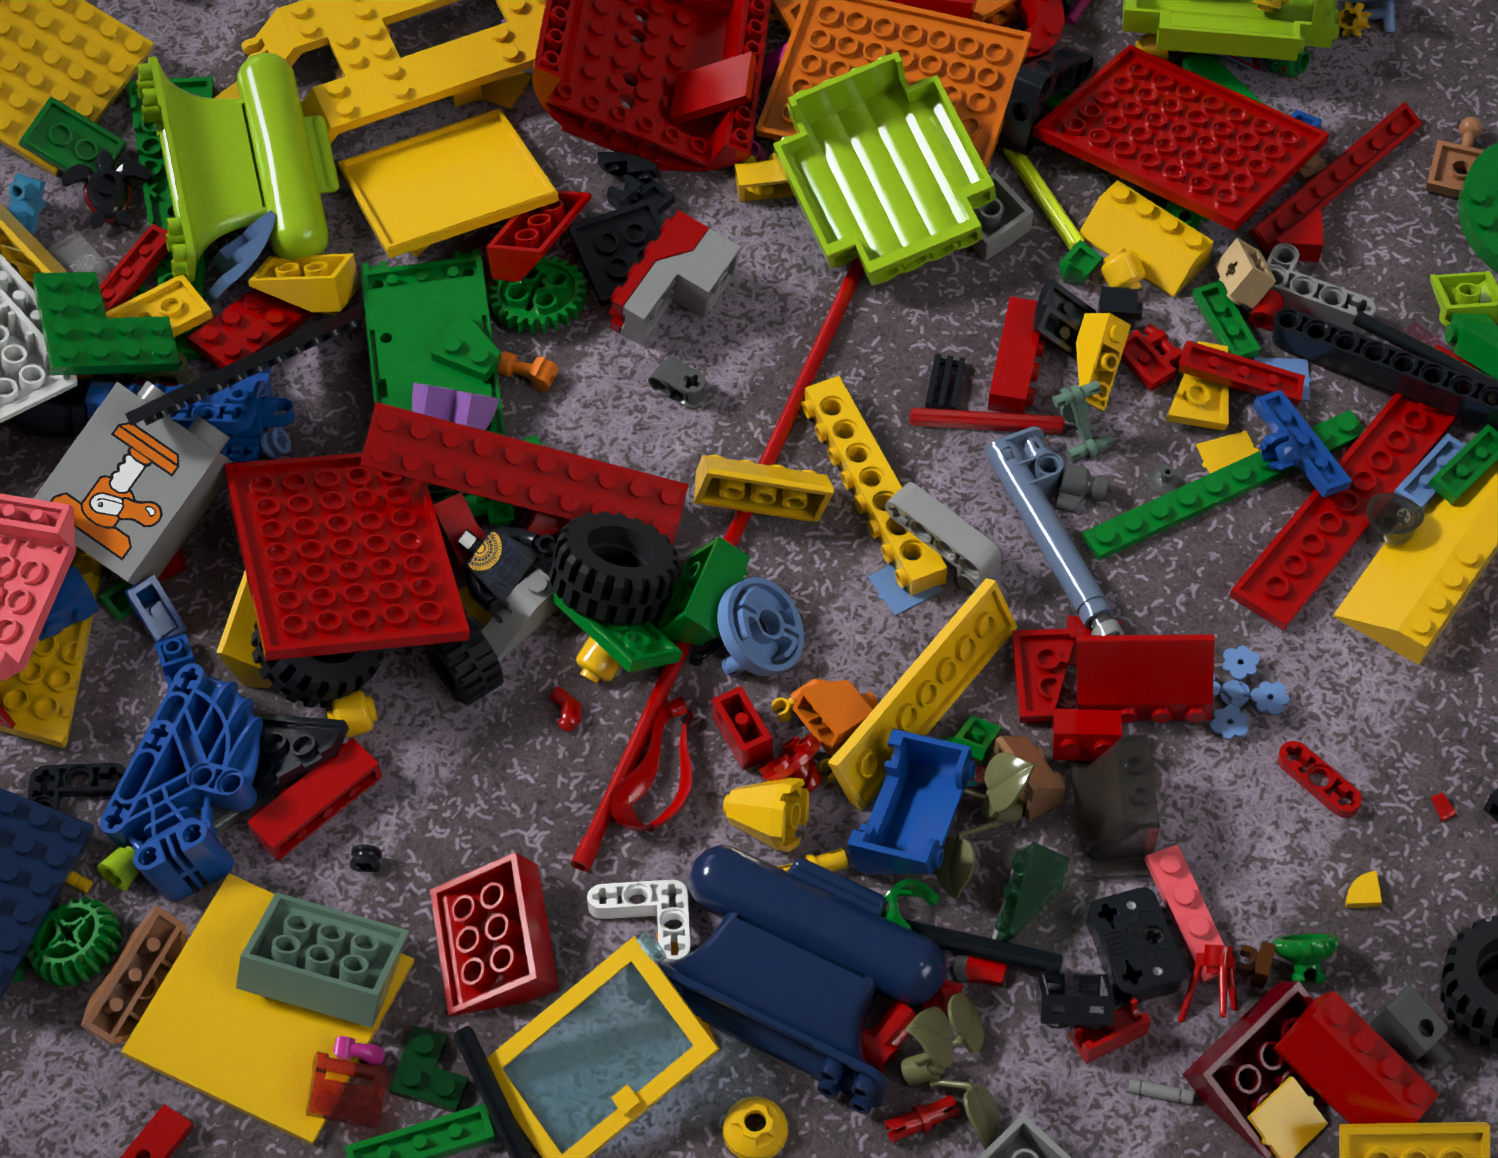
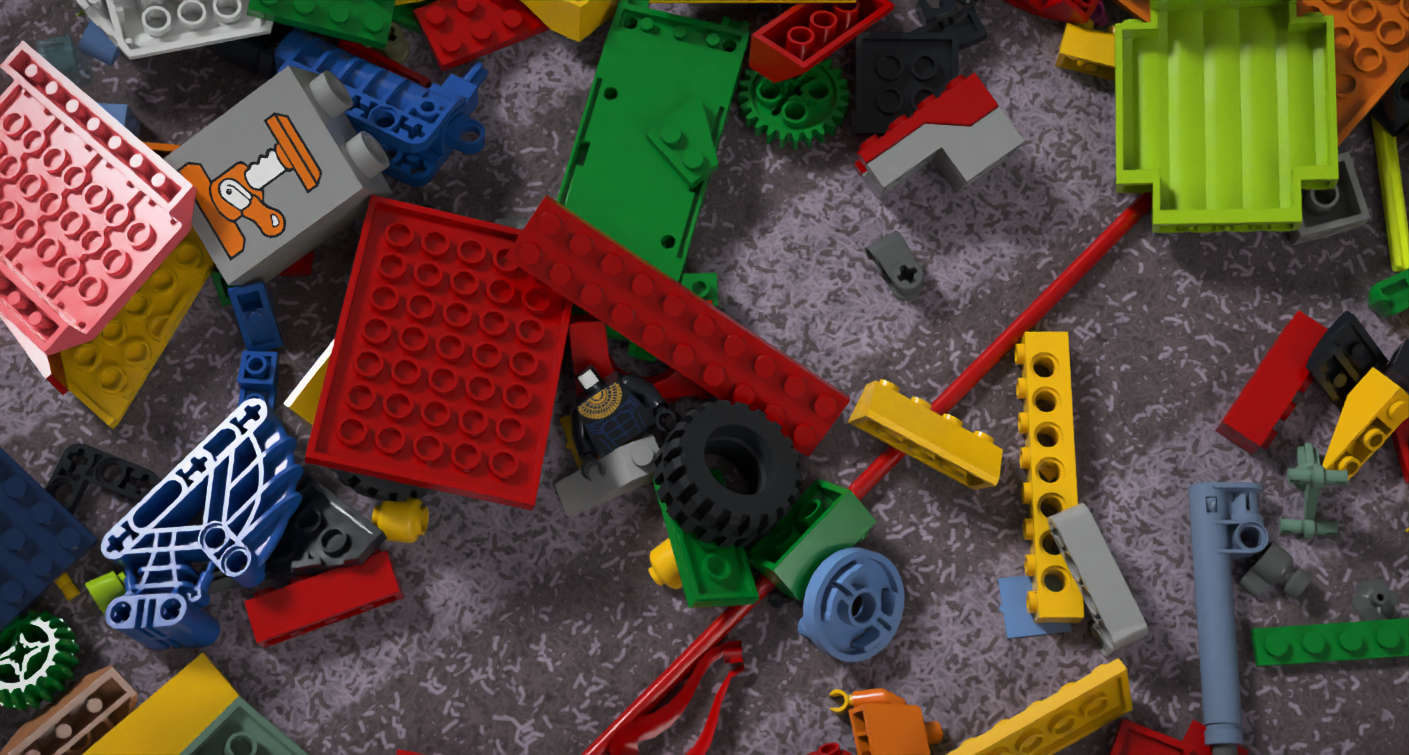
camera: 25 degrees right, 15 degrees up
(73, 604) = (176, 276): blue brick -> none
(251, 365) = (437, 87): black plate -> none
(275, 443) = (446, 166): medium blue bush -> none
(365, 858) = (347, 688): black bush -> none
(454, 405) = (637, 216): medium lavender brick -> none
(467, 667) = (536, 531): black tyre -> none
(540, 373) = (756, 193): orange leg -> none
(570, 709) = (623, 604): red arm -> none
(742, 728) = (785, 712): red brick -> none
(949, 363) = (1198, 356): black tile -> none
(985, 420) = (1207, 446): red axle -> none

